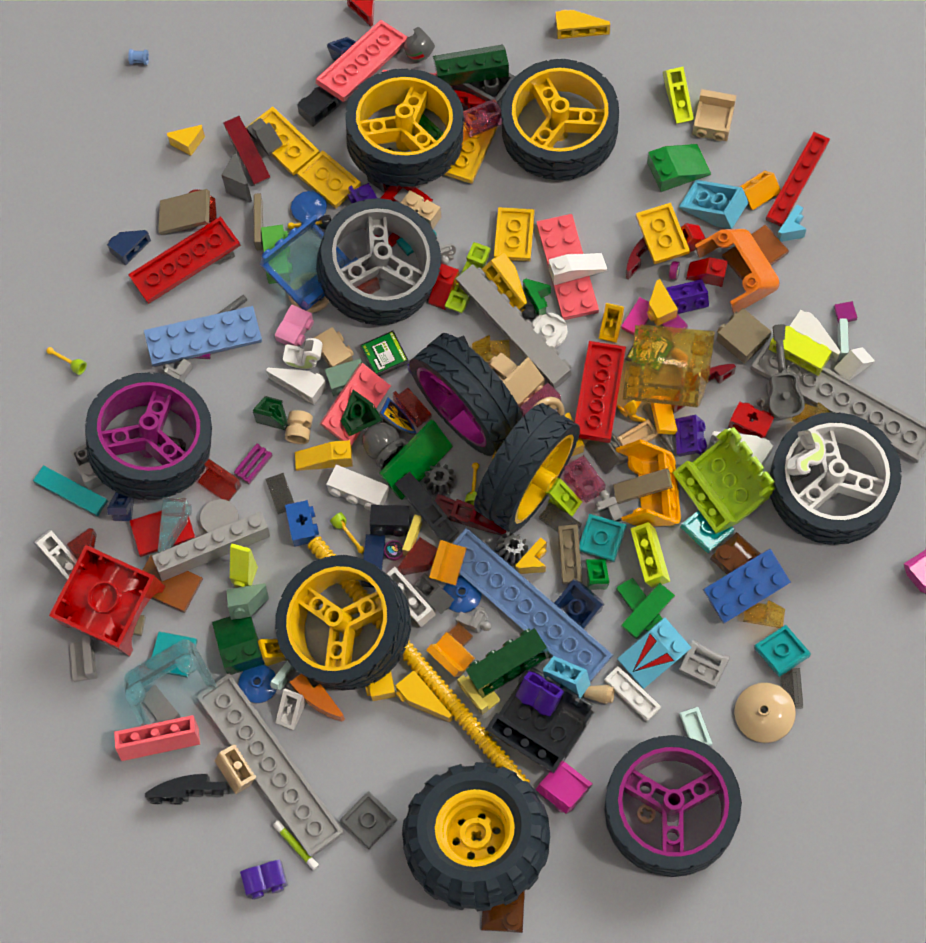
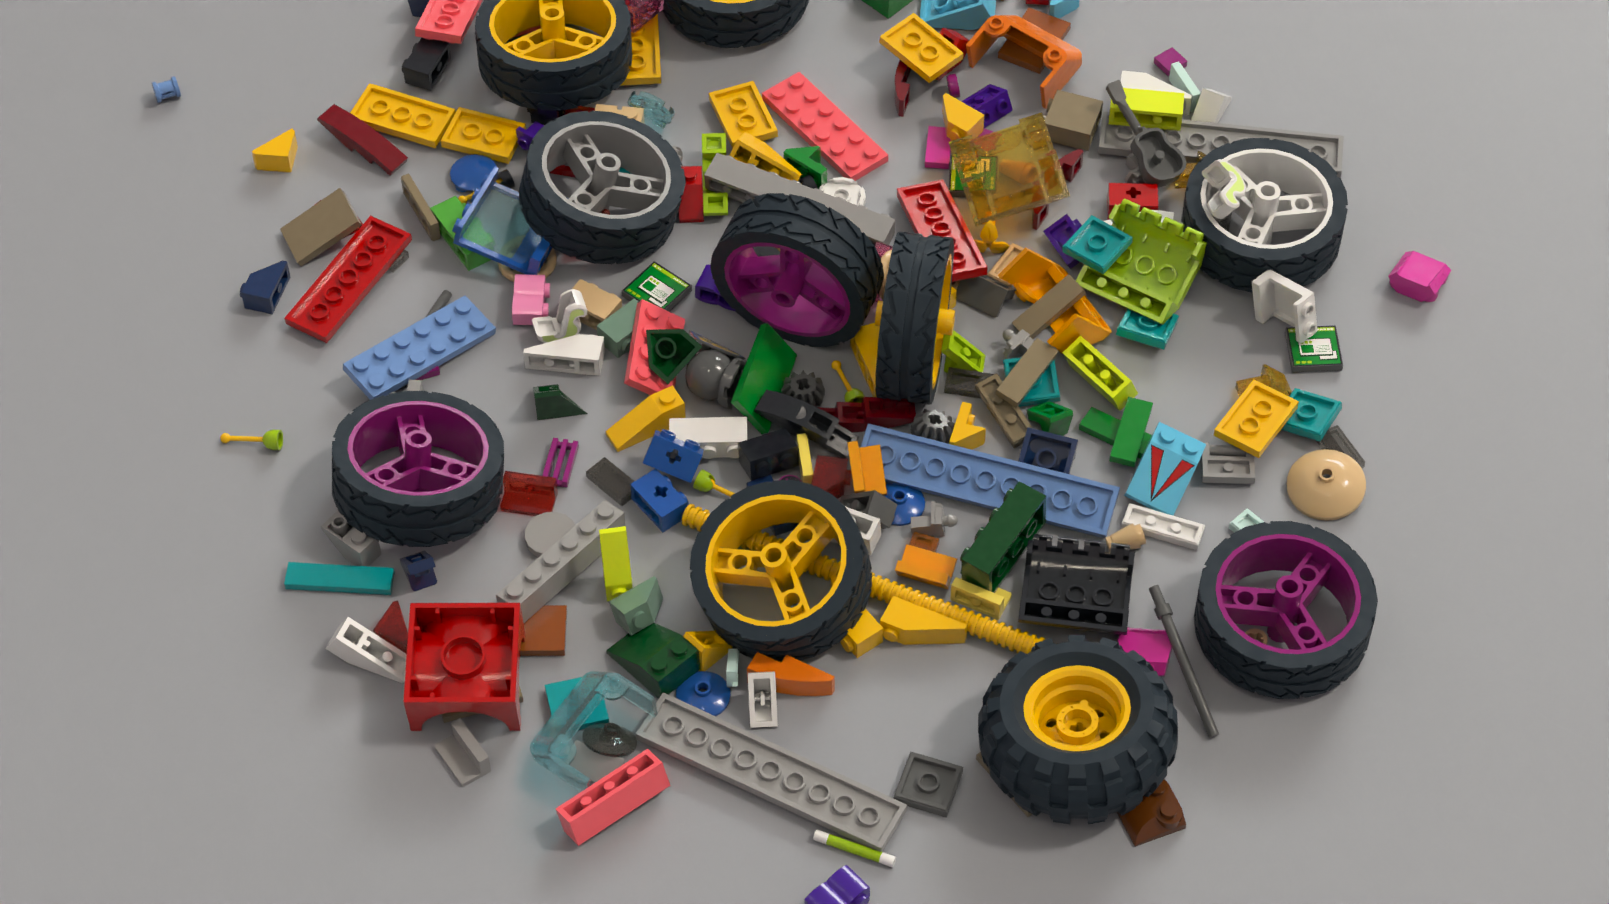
camera: 30 degrees left, 15 degrees down
(147, 532) = (483, 573): red tile -> none
(173, 520) = (496, 550): clear light blue slope -> none
(176, 698) = (609, 739): none -> clear smoke dish
(178, 789) = (673, 842): black slope -> none
(235, 180) = (373, 170): dark grey slope -> none
(235, 769) = (732, 790): tan brick -> none
(264, 136) = (379, 113): dark grey slope -> none
(299, 426) = (597, 400): tan wheel -> none
(323, 495) = (683, 465): none -> blue brick
(412, 407) = (723, 332): clear red panel -> none
(444, 202) = (653, 108): none -> clear light blue plate
(539, 693) = (1060, 558): dark purple brick -> none
(567, 675) = (1081, 525): medium azure brick -> none
(575, 266) = (836, 118): white slope -> none
(586, 770) = (1164, 613): none -> dark grey bar
(588, 477) = (979, 327): clear pink brick -> none
(597, 534) = (1026, 372): none -> dark tan tile
(611, 322) = (911, 159): yellow slope -> none
(664, 418) = (1029, 232): yellow tile -> none
(666, 440) = (1018, 240): dark grey piece -> none
(701, 451) = (1097, 244): none -> teal plate
(709, 269) = (993, 69): red slope -> none
(734, 553) = (1198, 345): reddish brown slope -> none
(739, 641) = (1256, 418): none -> yellow plate
(746, 585) = (1229, 361): blue plate -> none
(805, 545) = (1285, 300): none -> white panel
(818, 597) = (1317, 352): none -> tile

